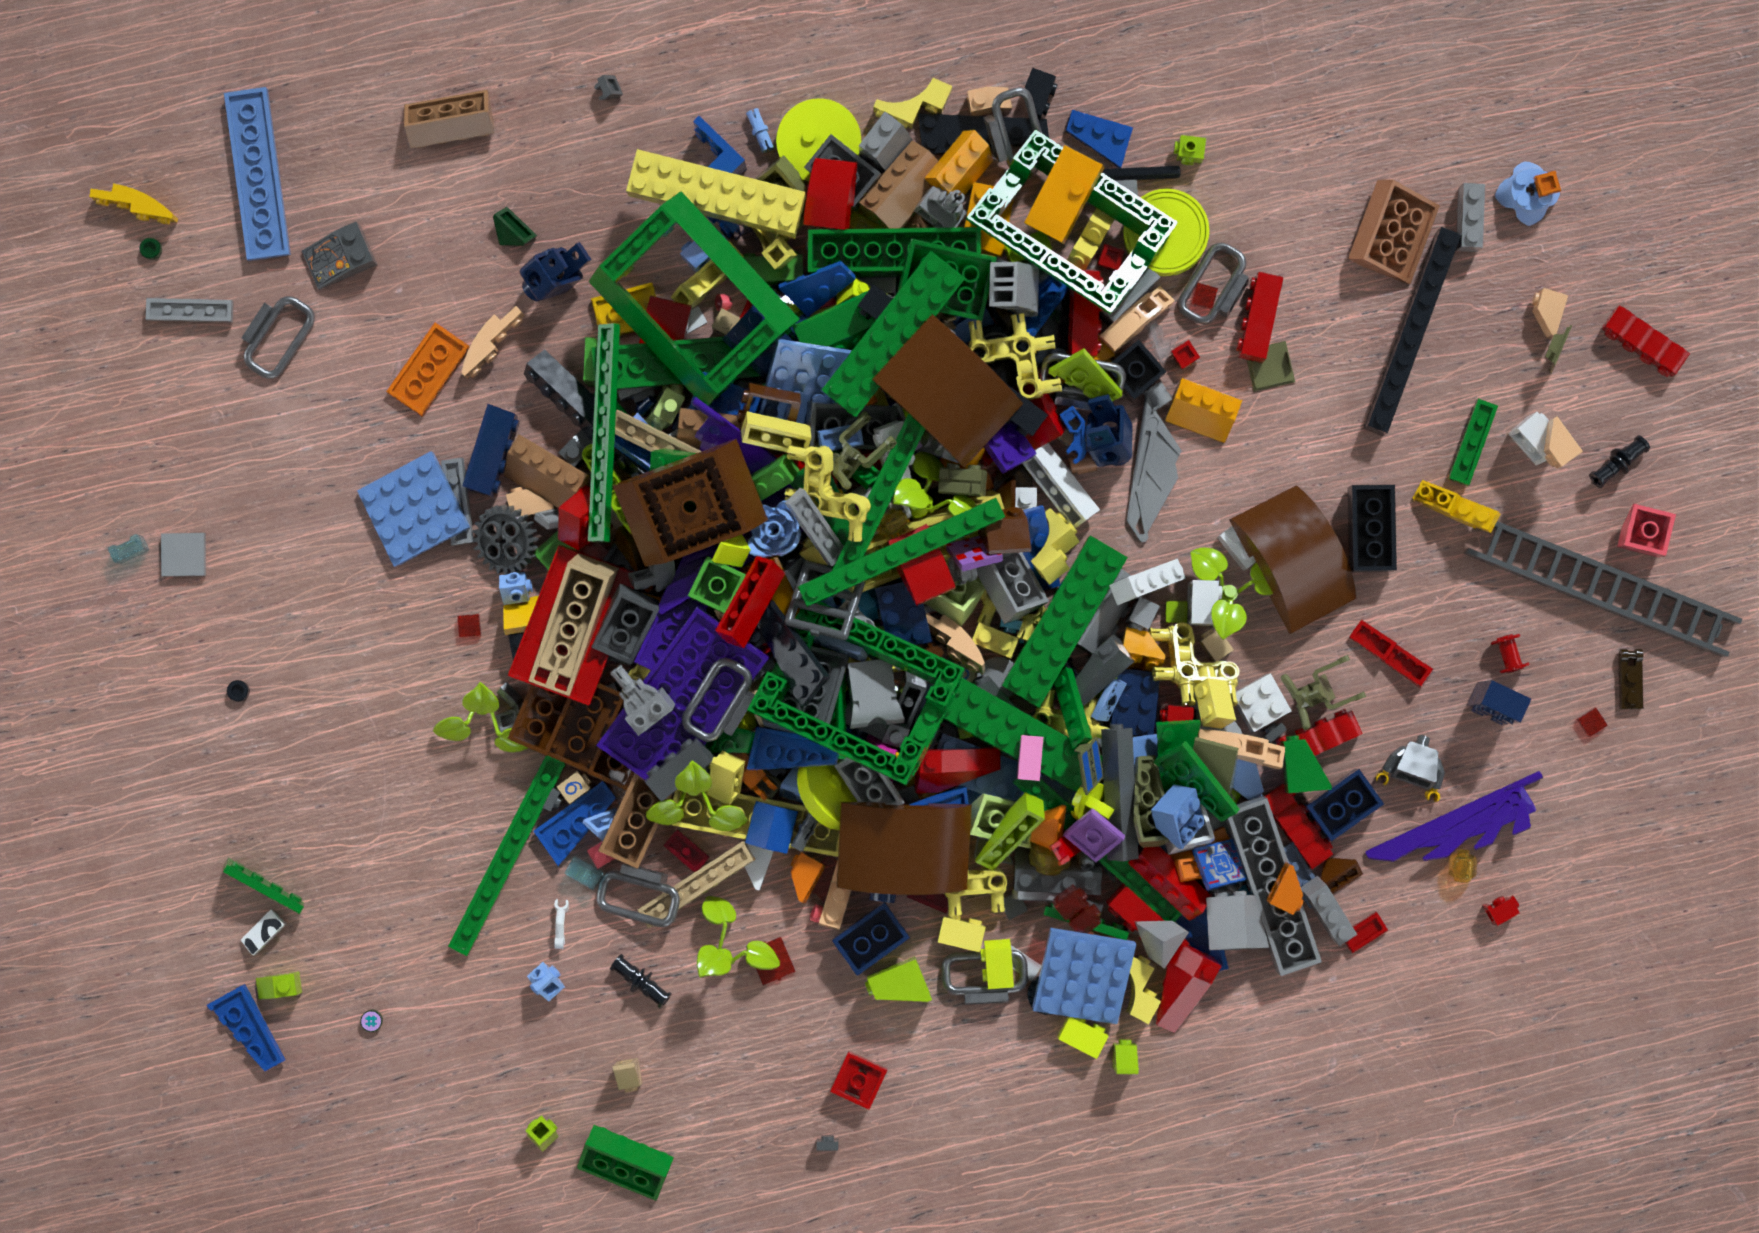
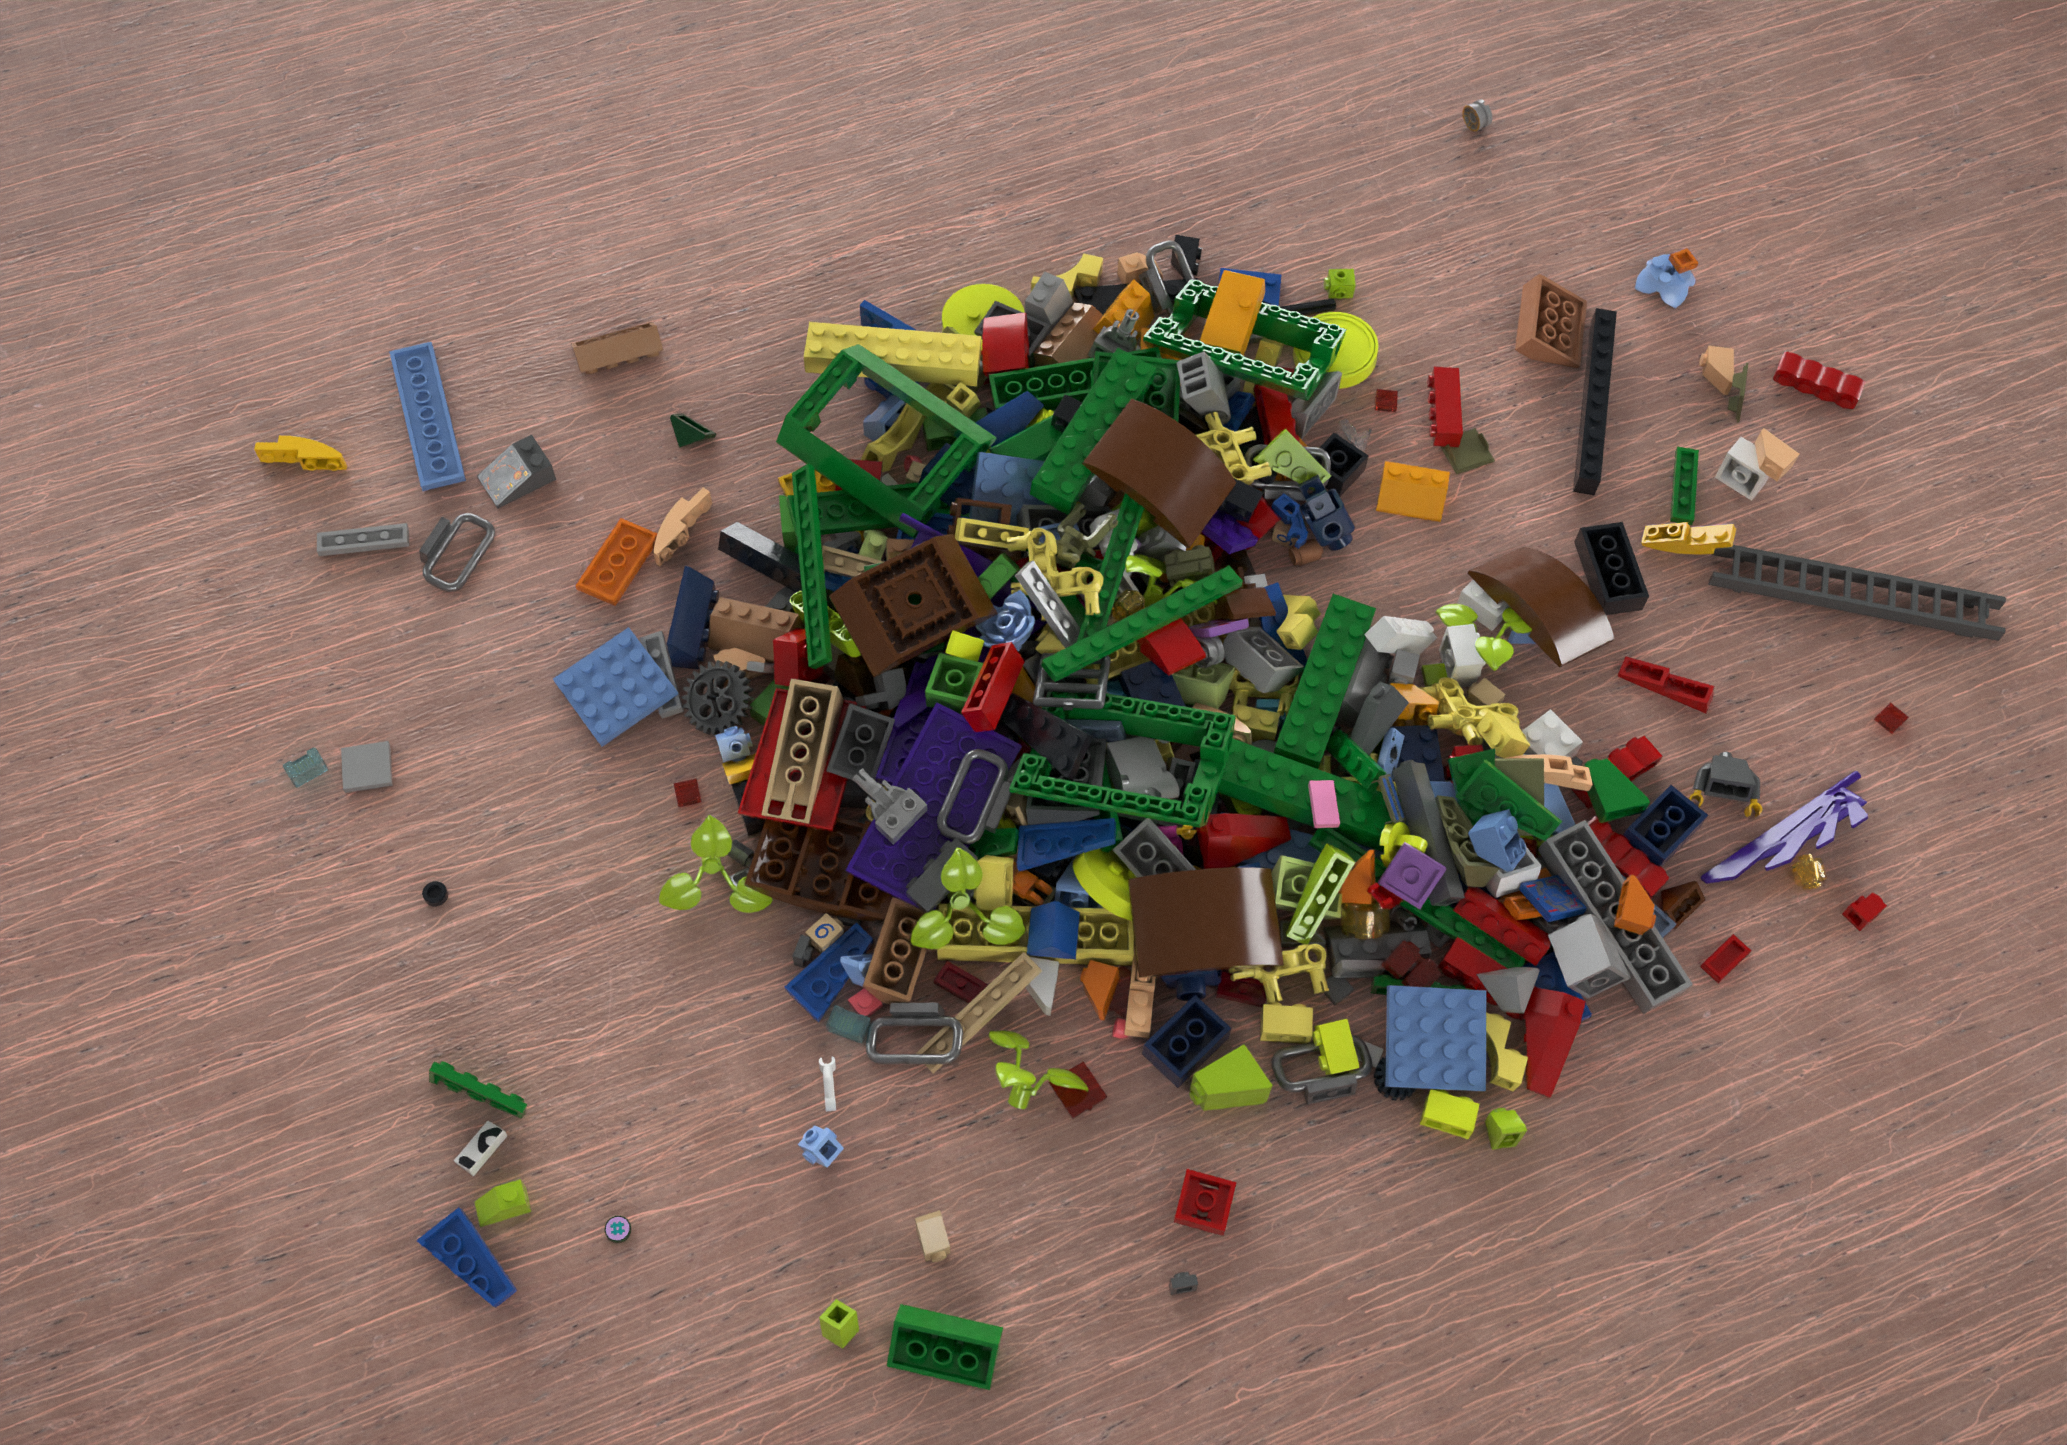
camera: 10 degrees left, 25 degrees down
(150, 248) = (319, 493): dark green tile -> none
(506, 855) = (755, 1022): green plate -> none
(543, 269) = (737, 451): dark blue piece -> none
(609, 87) = (771, 302): dark grey tile -> none
(640, 981) = (931, 1131): black piece -> none
(760, 130) = (924, 319): light blue pin -> none
(804, 833) = (1092, 928): dark grey pin -> none
(1061, 486) = (1287, 571): white brick -> none
(1136, 318) = (1325, 418): light nougat slope -> none
(1154, 463) = (1376, 544): light grey wing -> none
(1185, 354) = (1381, 448): red plate -> none
(1230, 293) = (1410, 395): flat silver bar -> none
(1316, 692) = (1602, 724): olive piece -> none
(1328, 911) = (1684, 934): light grey brick -> none
(1470, 217) = (1619, 297): light grey brick -> none
(1499, 702) = (1793, 699): dark blue brick -> none
(1510, 653) = (1786, 662): red hose -> none
(1619, 460) = (1832, 480): black piece -> none
(1631, 679) = (1915, 673): dark brown plate -> none
(1647, 531) = (1882, 534): coral slope -> none

